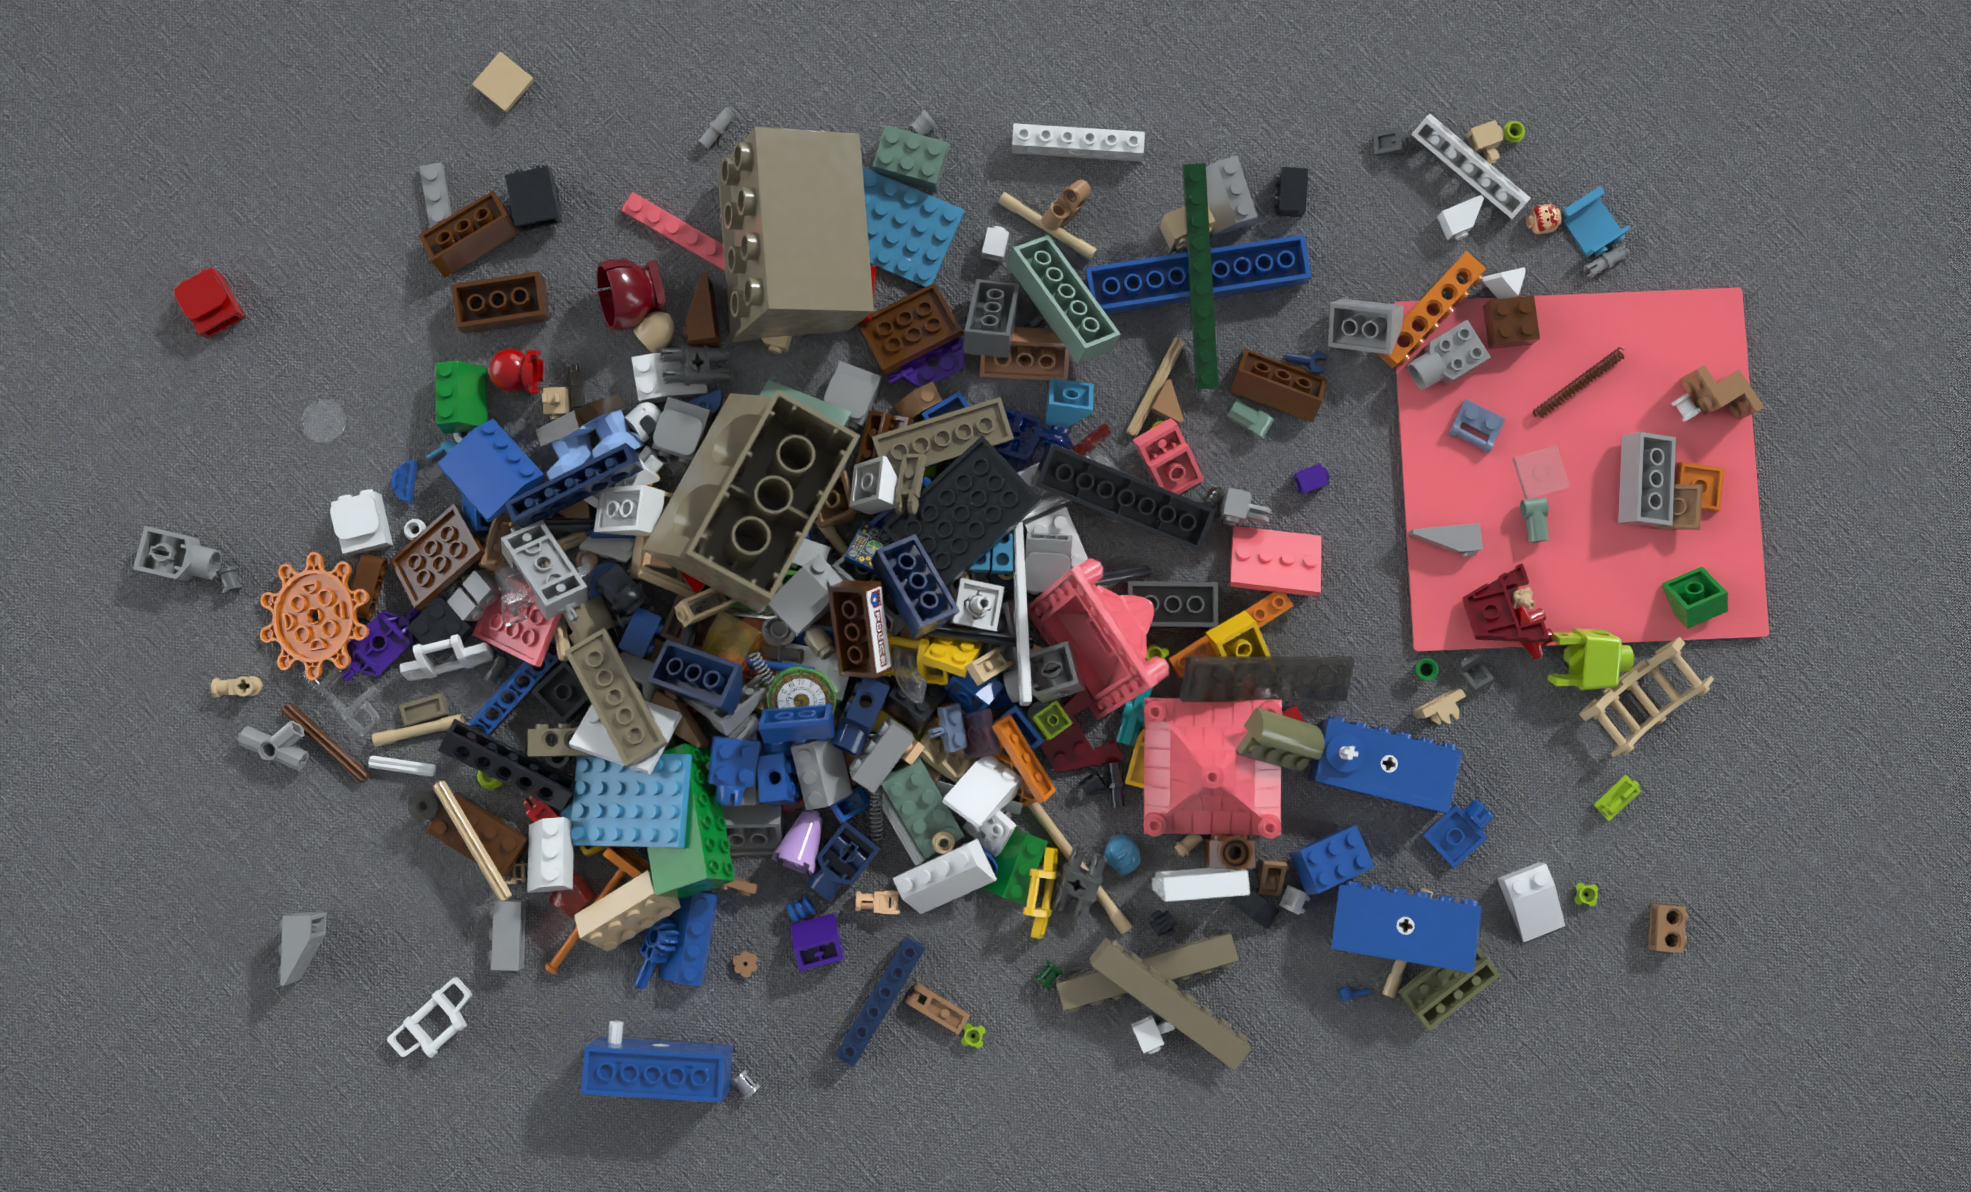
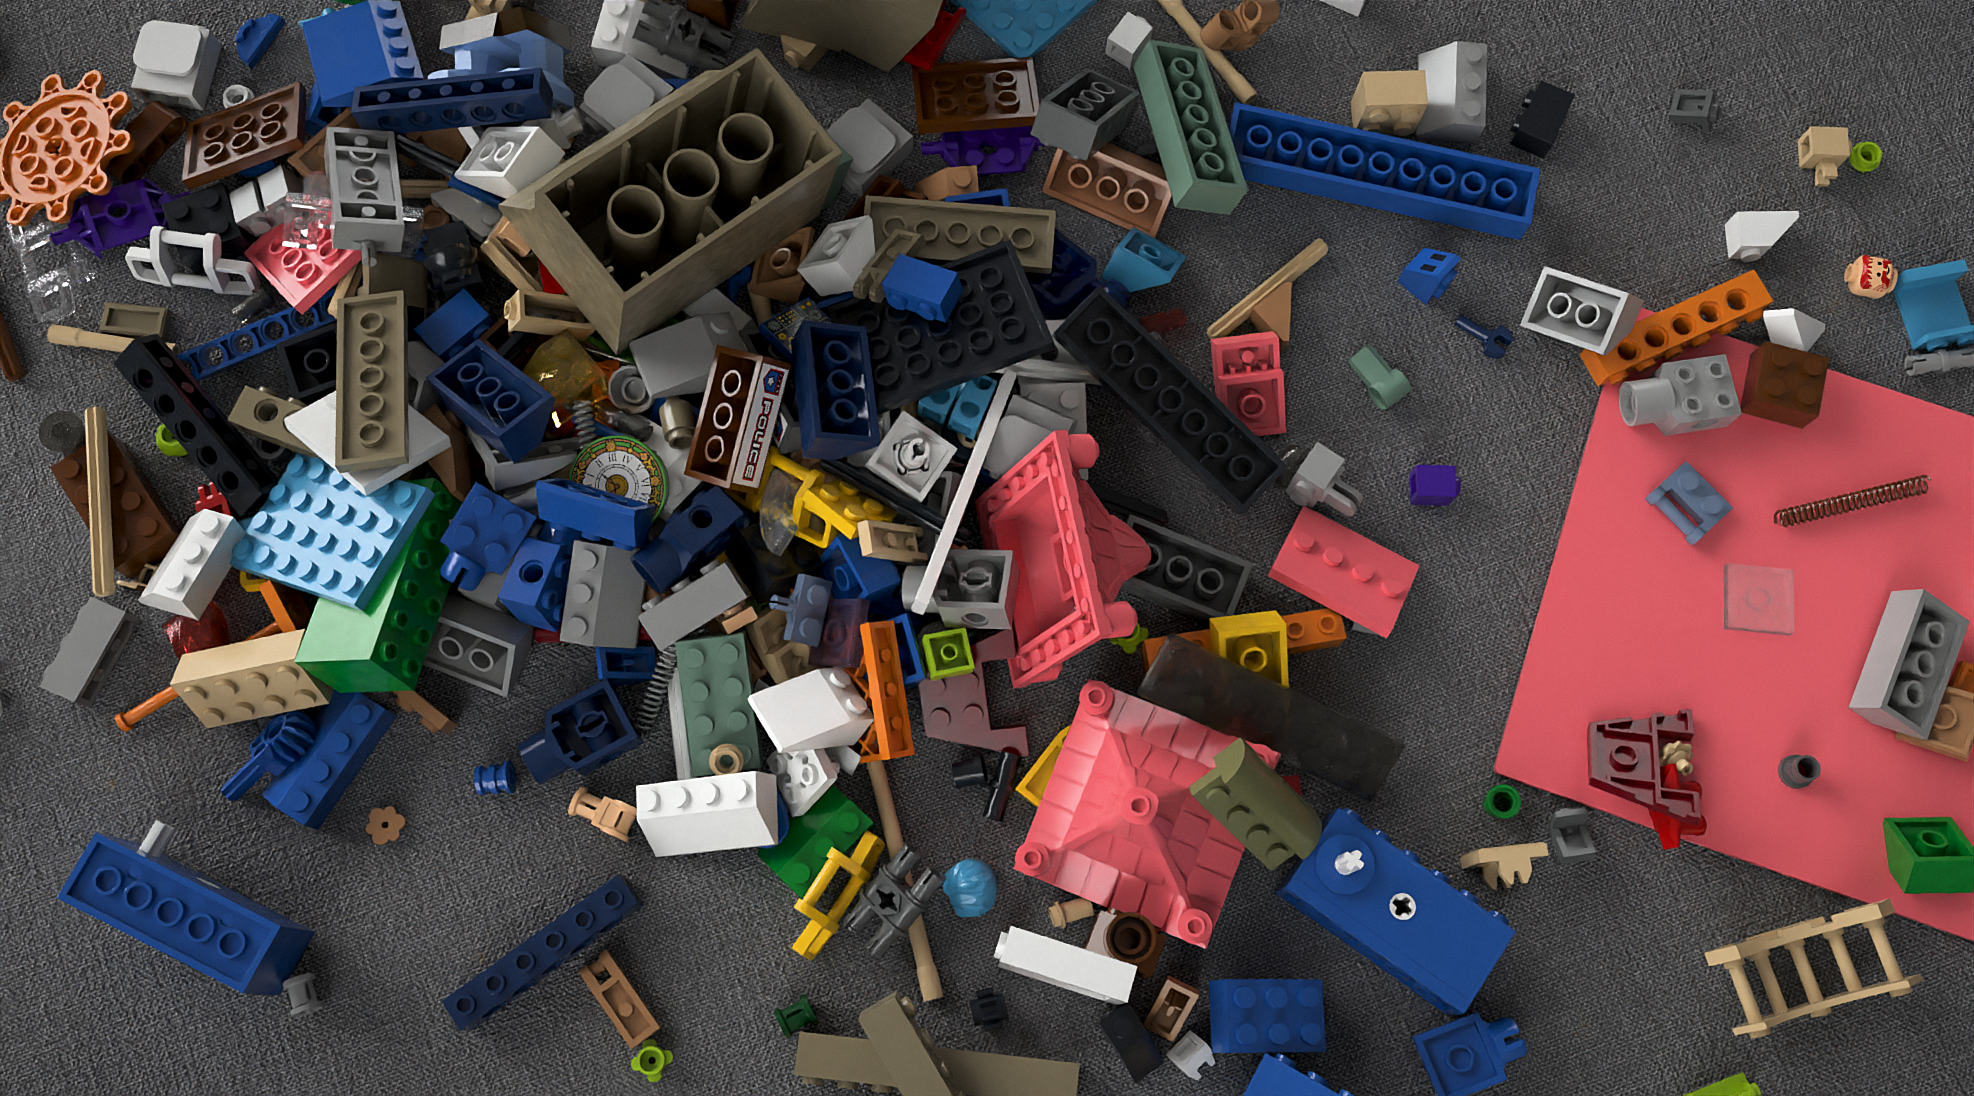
camera: 20 degrees right, 10 degrees down
(402, 766) = (70, 380): white axle -> none
(643, 419) = (583, 72): white helmet -> none
(801, 843) = (534, 688): lavender cone -> none
(817, 942) = (494, 834): dark purple slope -> none
(940, 494) = (922, 288): none -> blue brick
(1132, 719) = (1064, 698): teal piece -> none
(1200, 276) = (1381, 166): dark green plate -> none
(1257, 335) = (1429, 274): none -> blue slope
(1278, 385) = (1433, 349): reddish brown slope -> none
(1454, 538) = (1604, 637): light grey slope -> none
(1471, 166) = (1794, 173): white brick -> none
(1535, 514) = (1732, 650): sand green piece -> none
(1592, 658) = (1751, 881): lime piece -> none
(1593, 576) = (1789, 772): none -> dark grey piece

